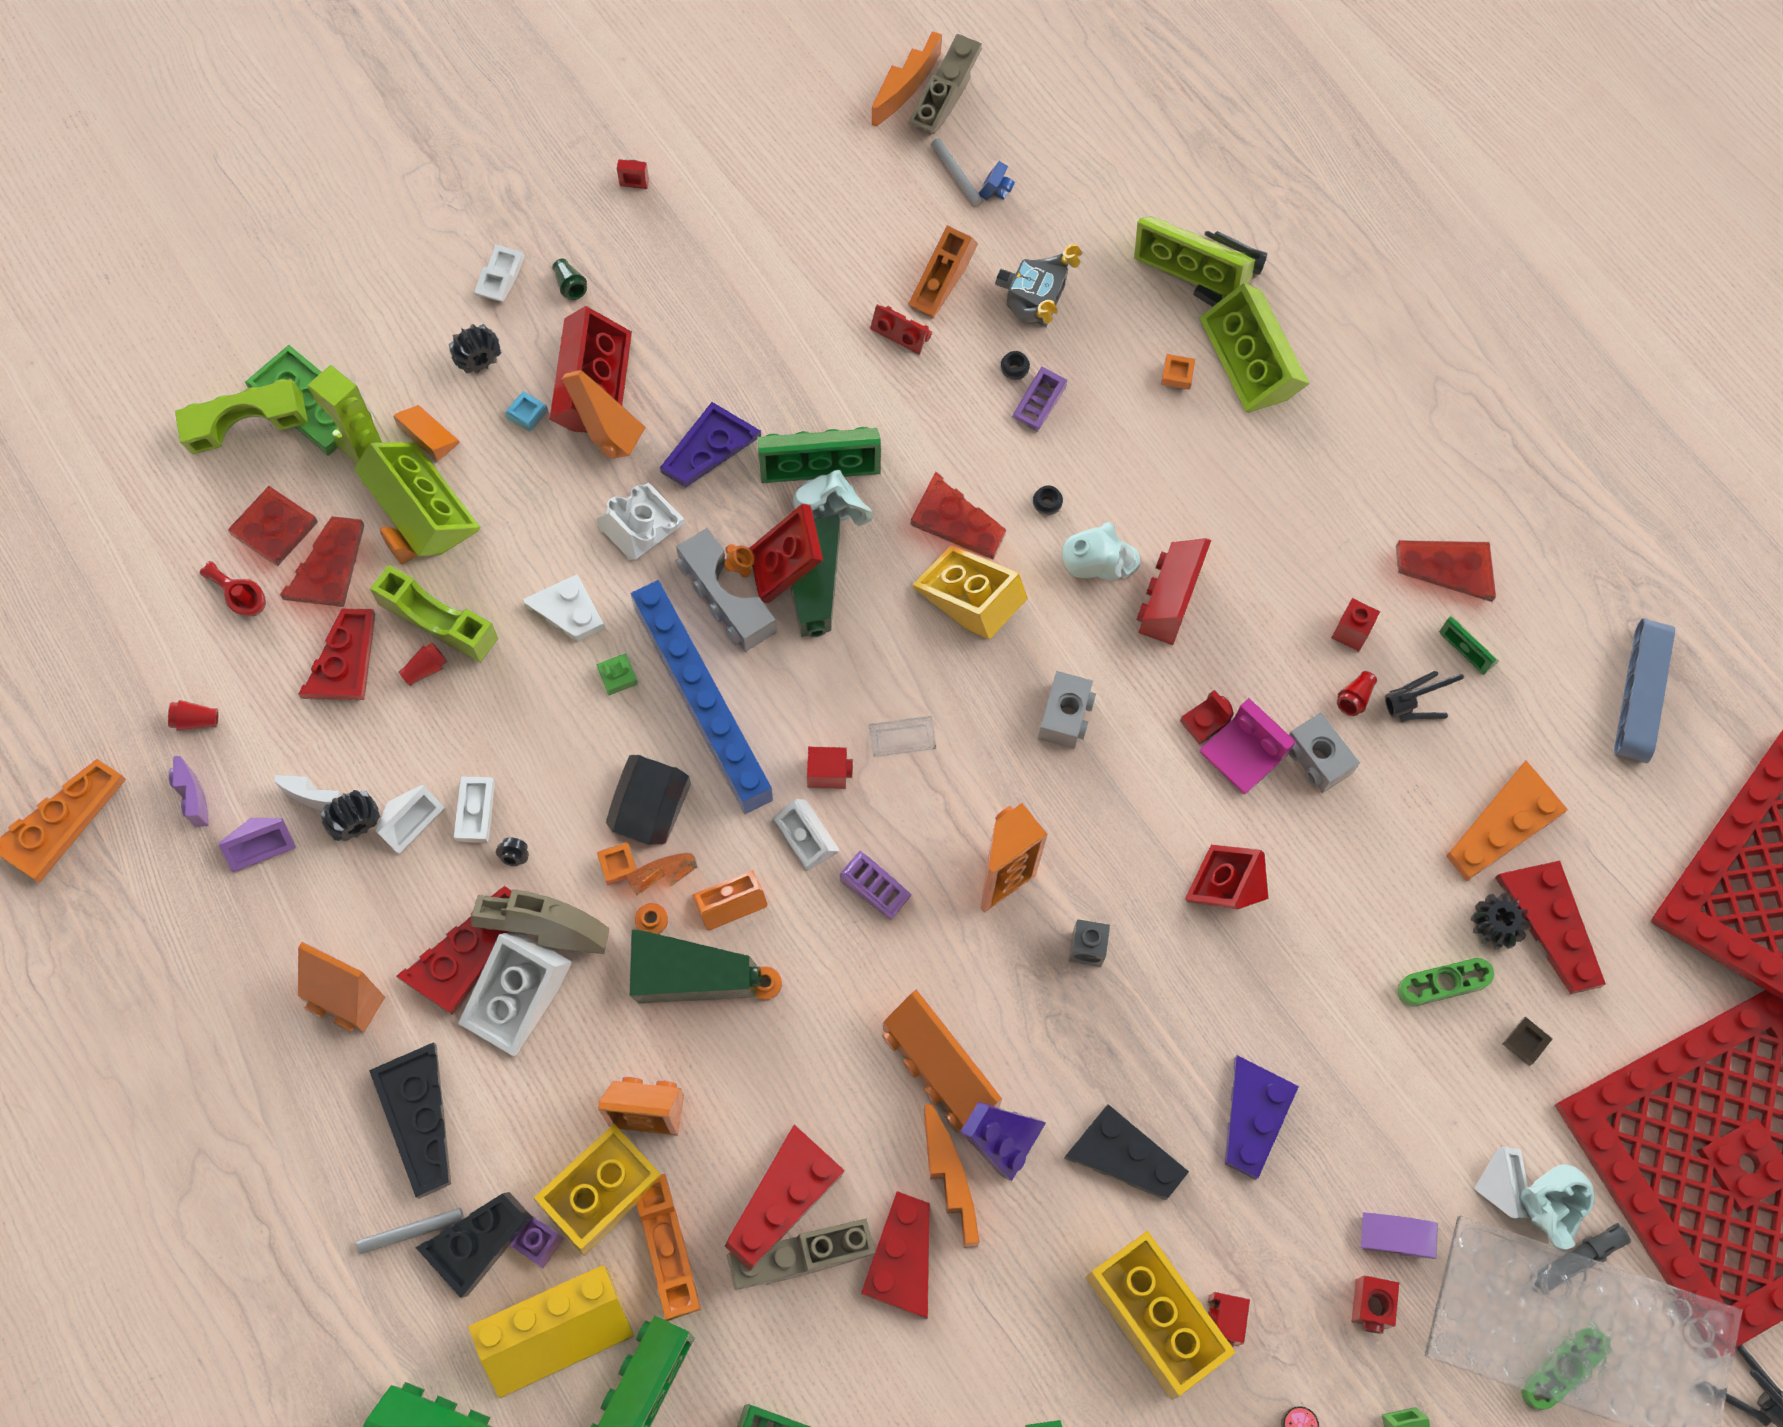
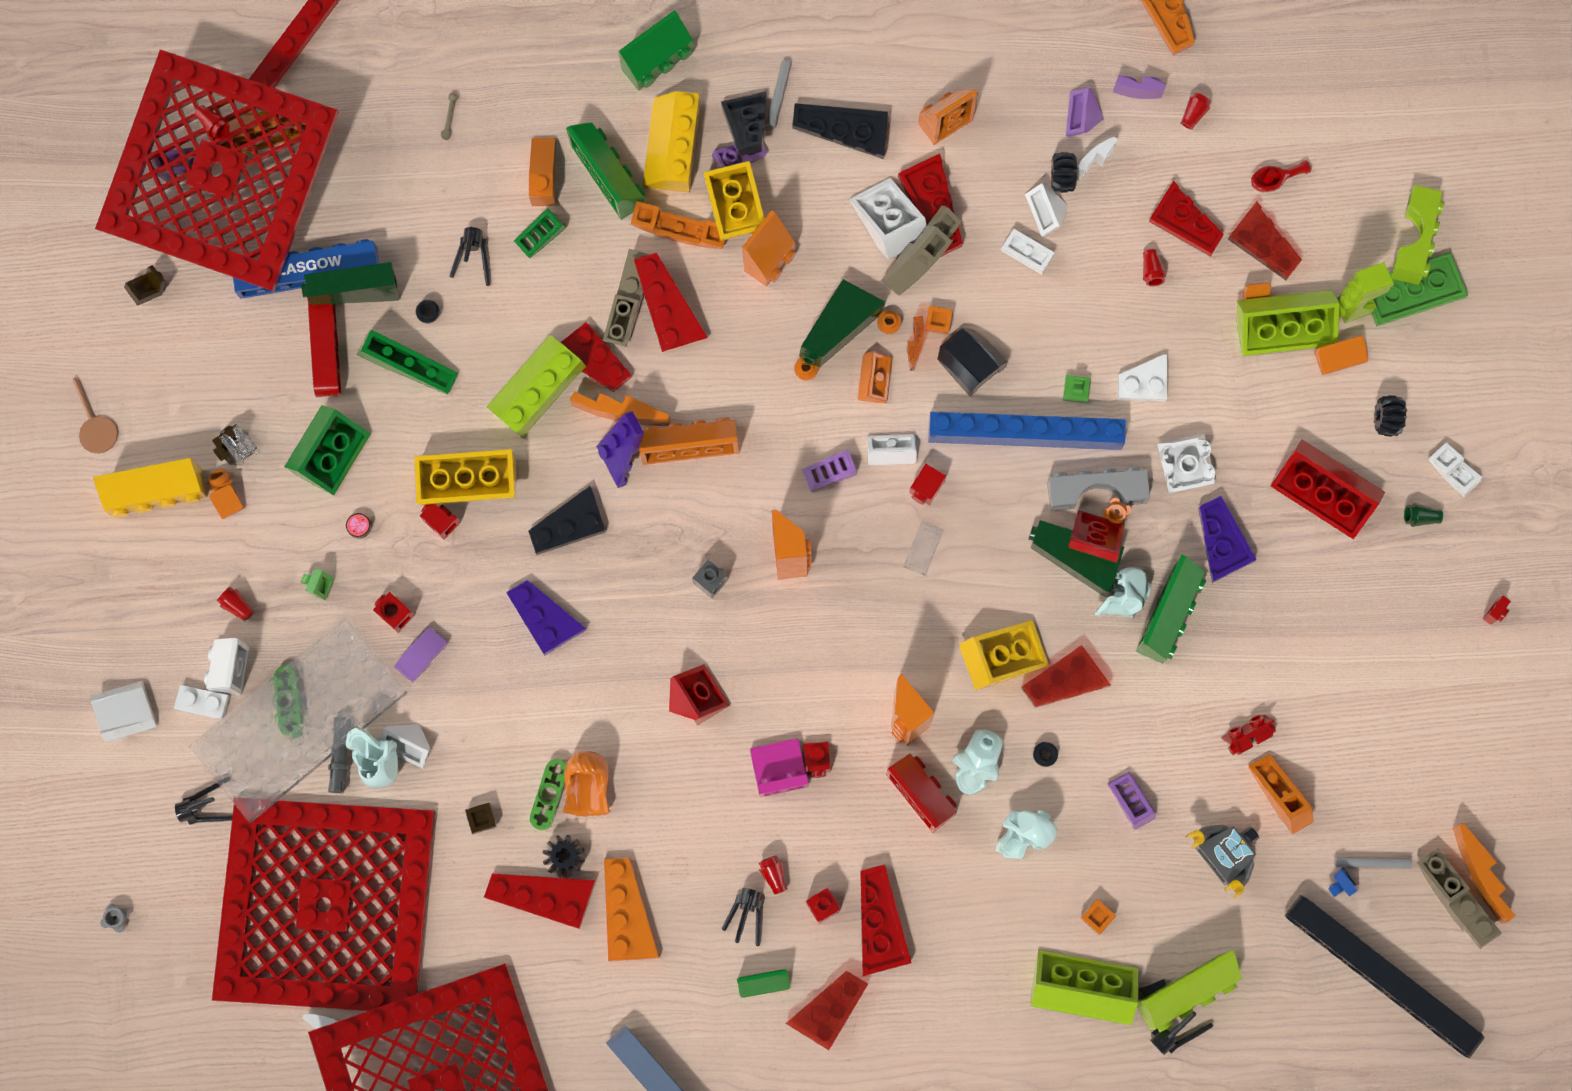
camera: 125 degrees right, 10 degrees up
(273, 526) = (1316, 220): clear red plate -> none
(457, 628) = (1195, 285): lime arch -> none
(512, 851) = (983, 260): black plate -> none
(526, 411) = (1322, 431): medium azure tile -> none
(603, 417) = (1271, 474): orange slope -> none
(985, 1304) = (536, 386): none -> lime slope
(1015, 358) = (1178, 796): black plate -> none
(1059, 117) = (1384, 976): none -> black beam
(1067, 692) = (872, 651): light grey brick -> none
(1112, 627) = (910, 713): none -> orange slope
(1140, 466) = (1026, 829): none -> light aqua head
(1321, 736) = (759, 824): light grey brick -> none
(1335, 559) = (881, 928): none -> red wing
(1408, 942) = (586, 784): none -> orange piece

